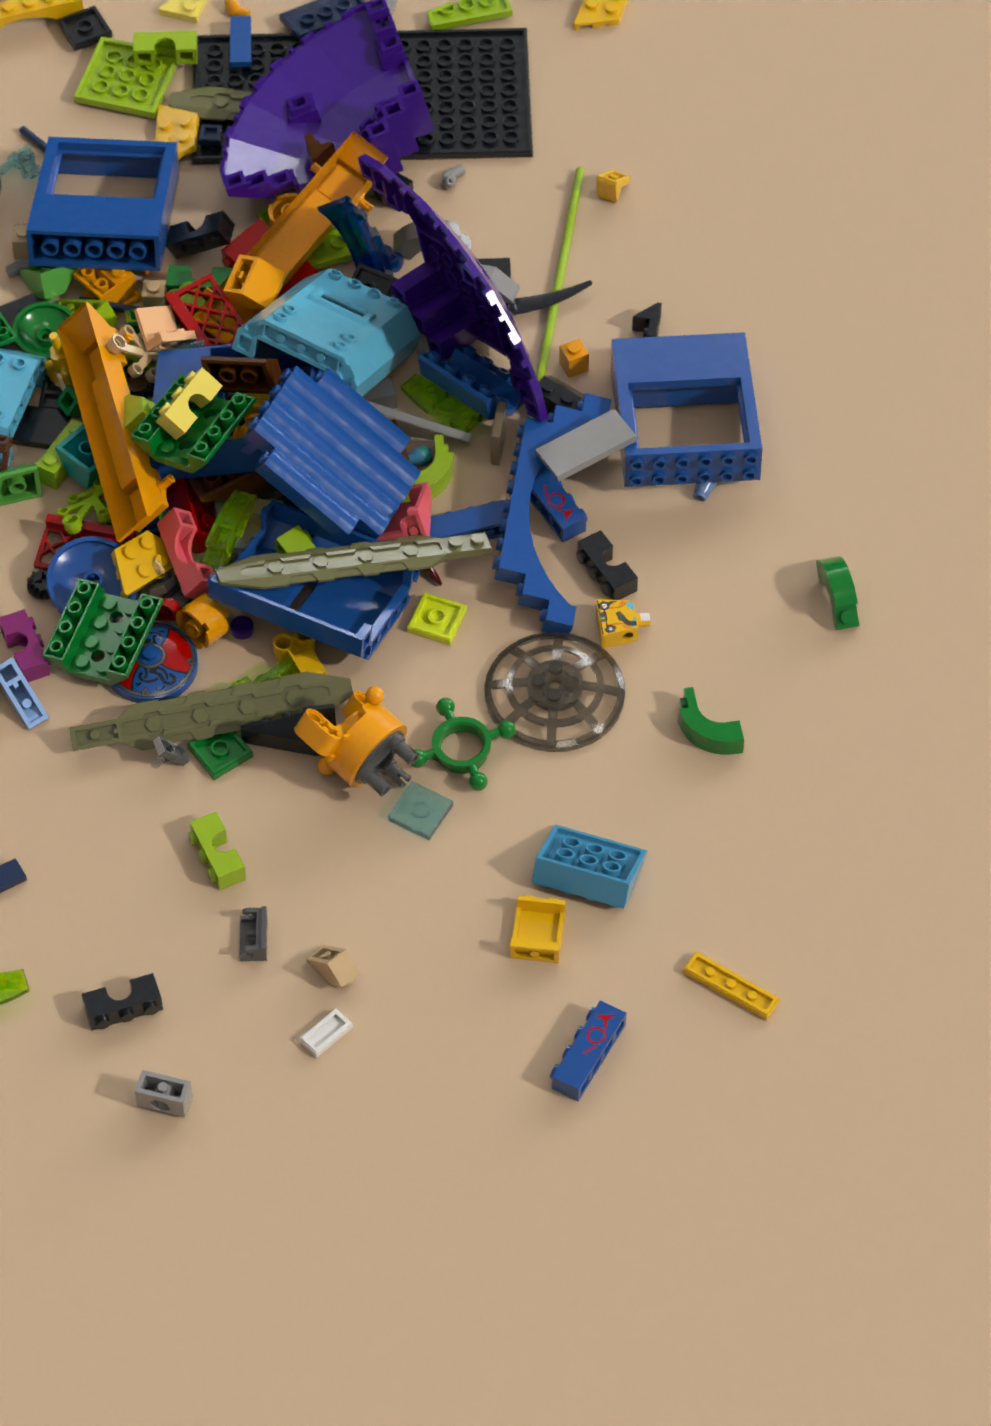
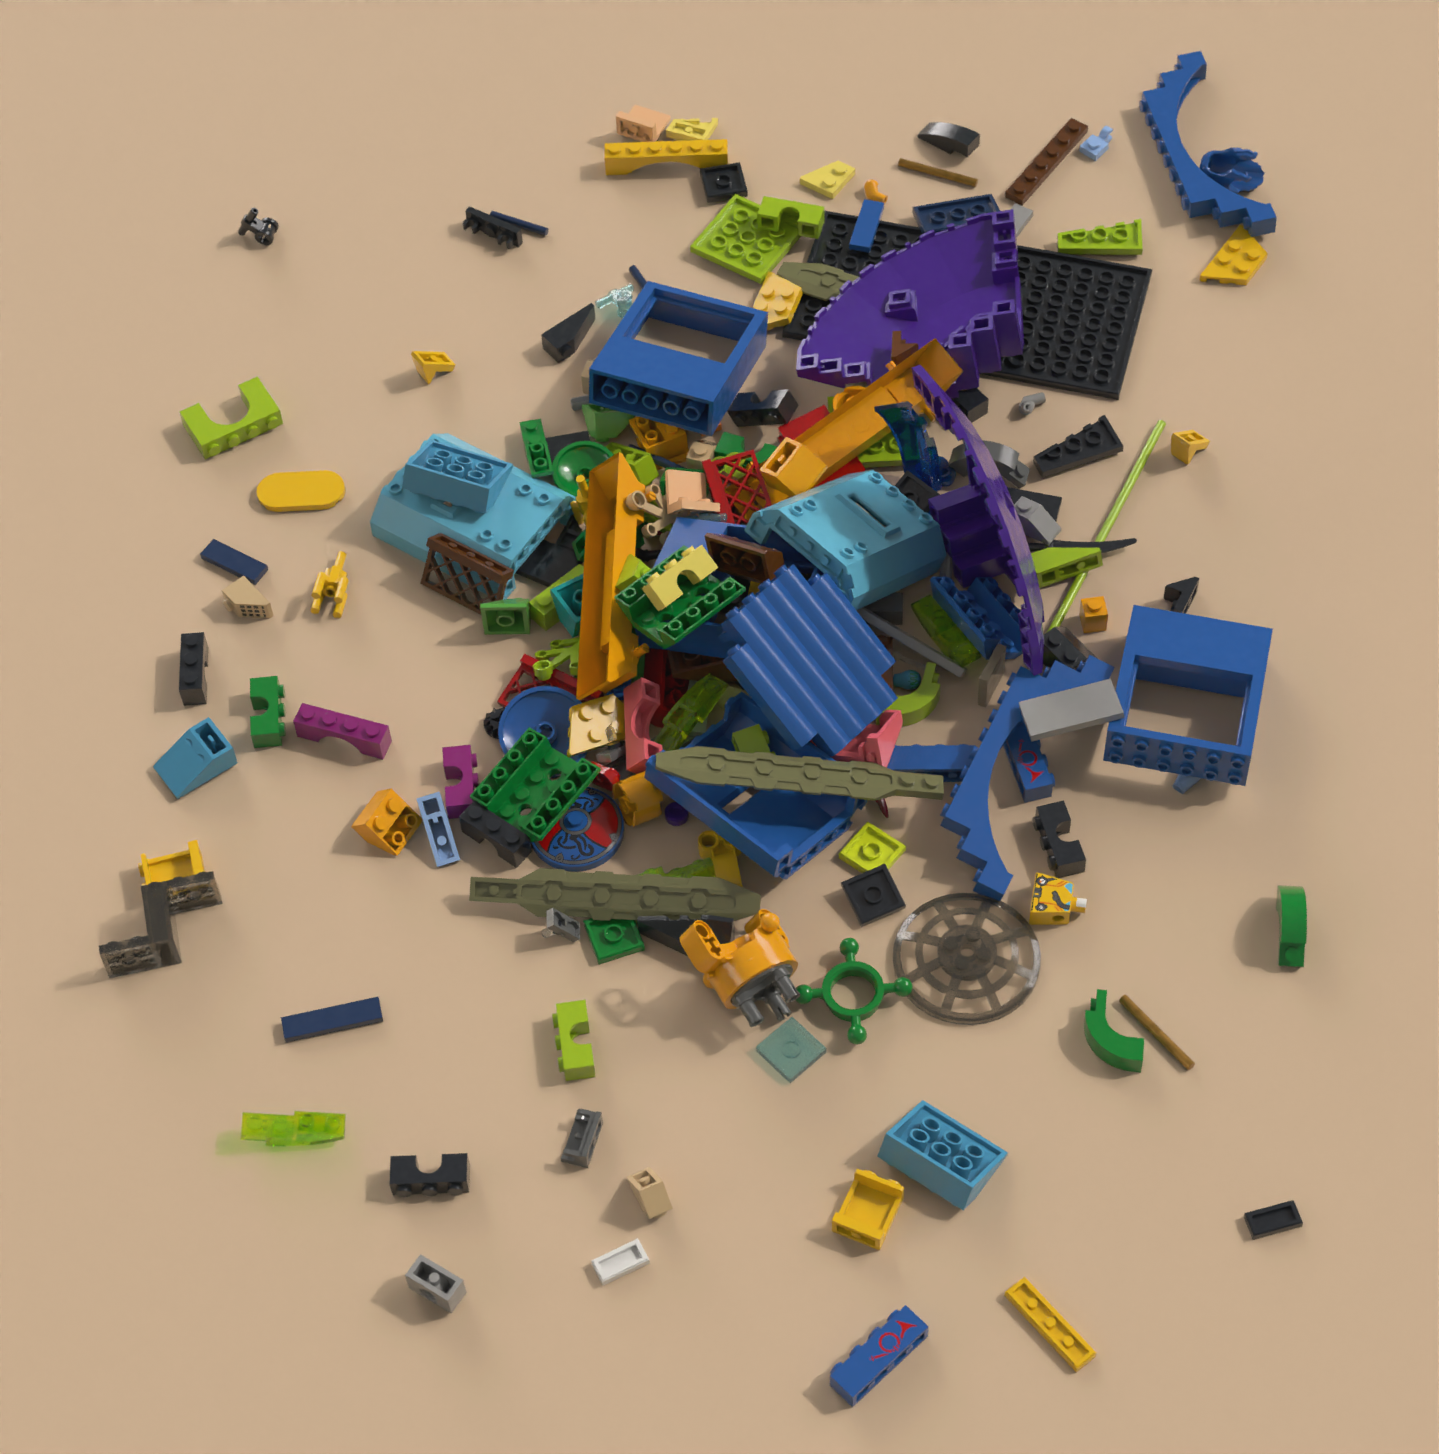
camera: 20 degrees right, 0 degrees up
(92, 688) = (483, 824): none -> black arch
(210, 135) = (807, 311): dark blue tile -> none
(451, 656) = (873, 895): none -> black plate
(516, 206) = (1084, 447): none -> black wing
(537, 314) = (1062, 563): none -> lime slope
(747, 714) = (1156, 1032): none -> pearl gold bar
(898, 848) = (1273, 1219): none -> black tile

